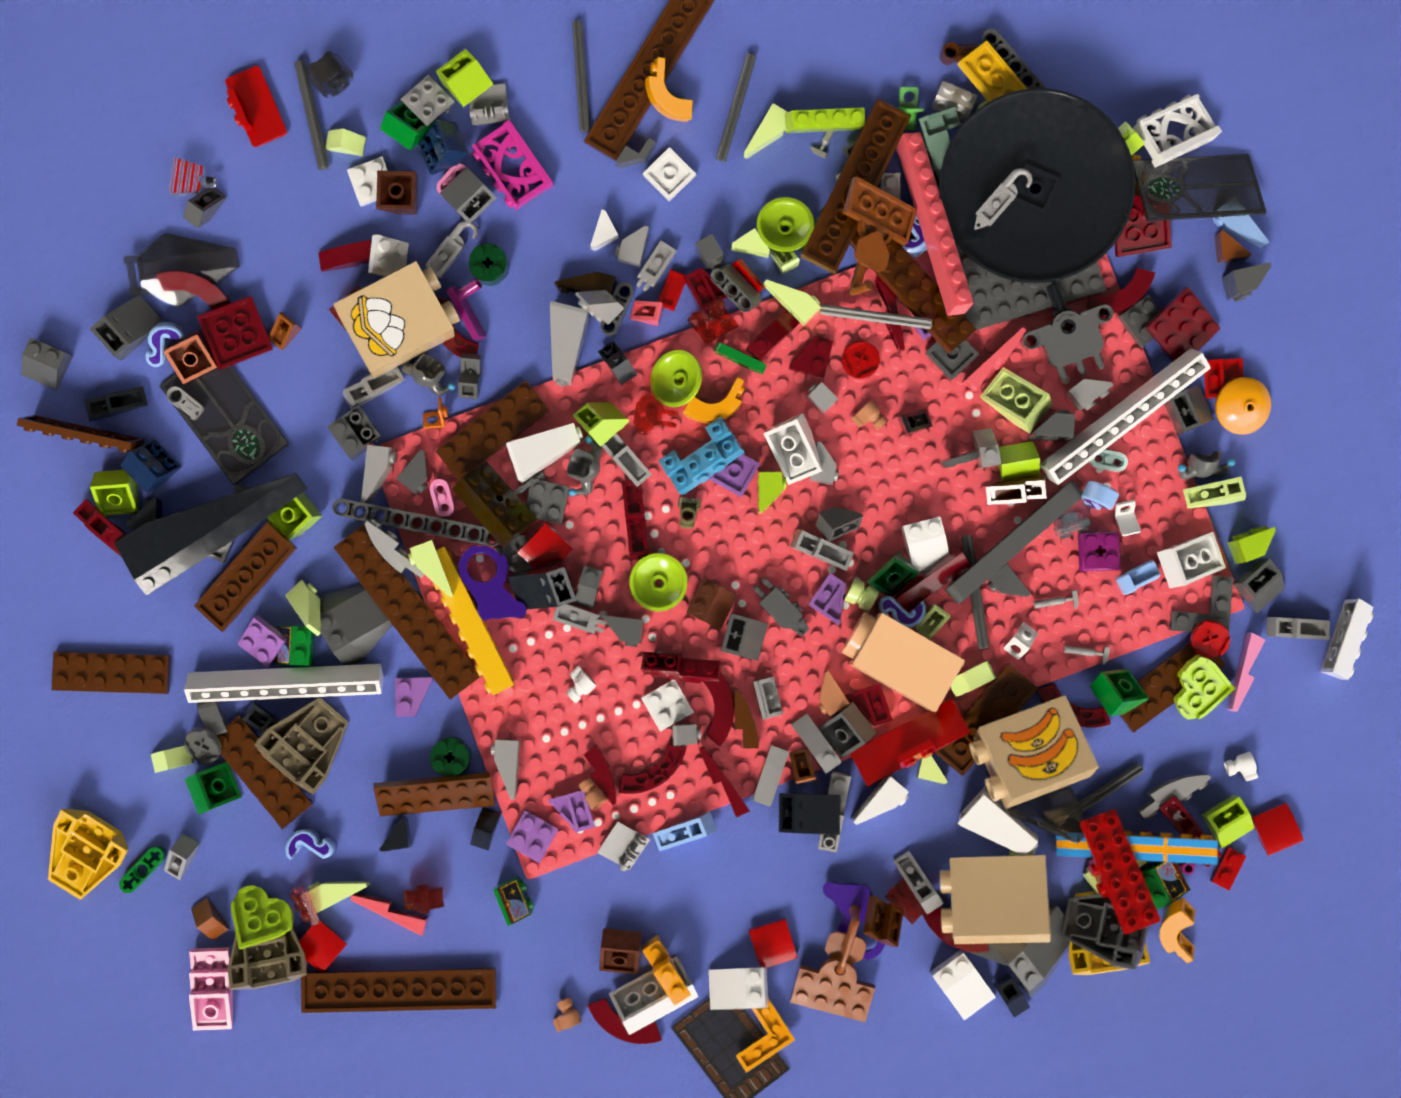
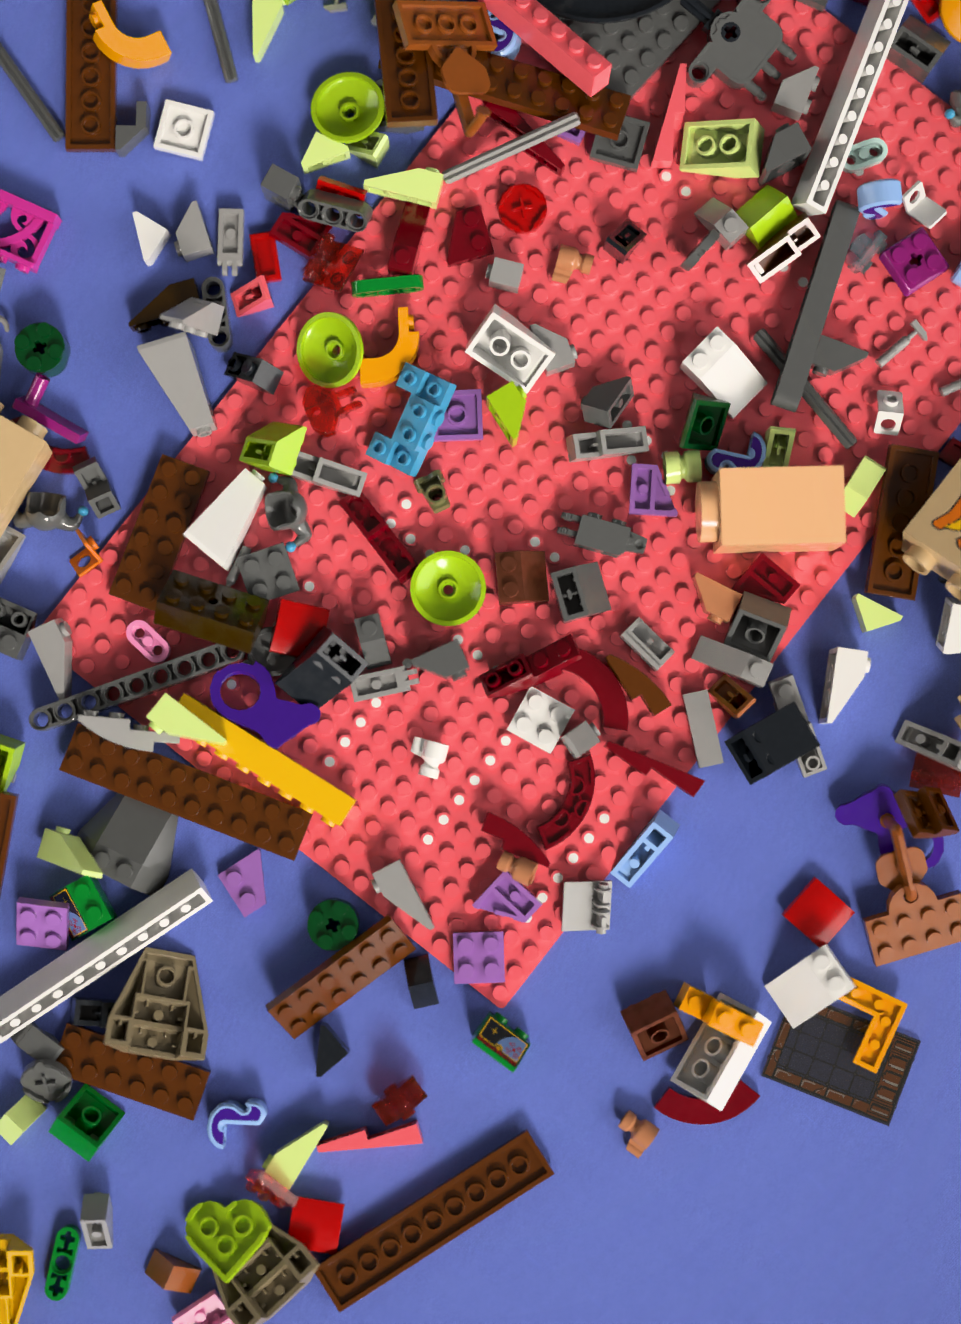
camera: 35 degrees left, 0 degrees up
(416, 473) = (102, 631): dark grey slope -> none
(910, 743) = (835, 598): red bracket -> none
(938, 576) = (746, 411): dark red slope -> none

